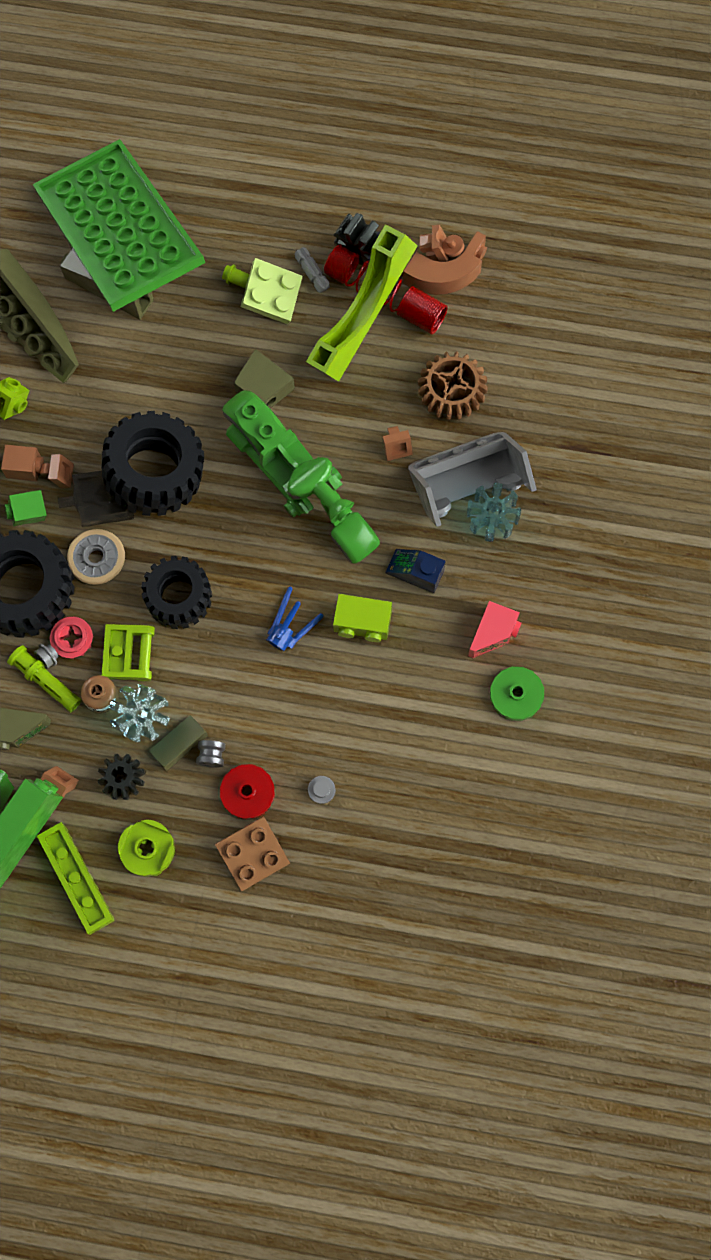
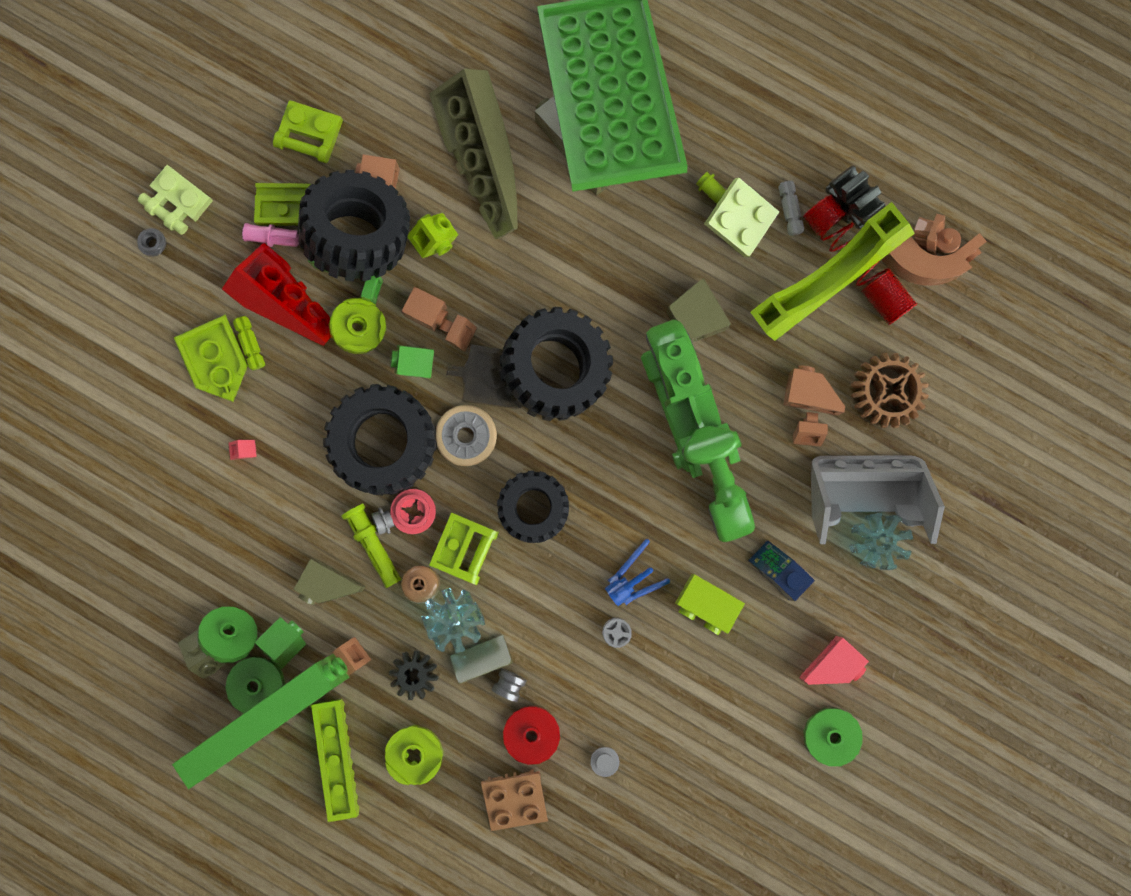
camera: 15 degrees right, 10 degrees up
(289, 668) = (620, 634): none -> light grey wheel
(386, 410) = (811, 392): none -> nougat slope

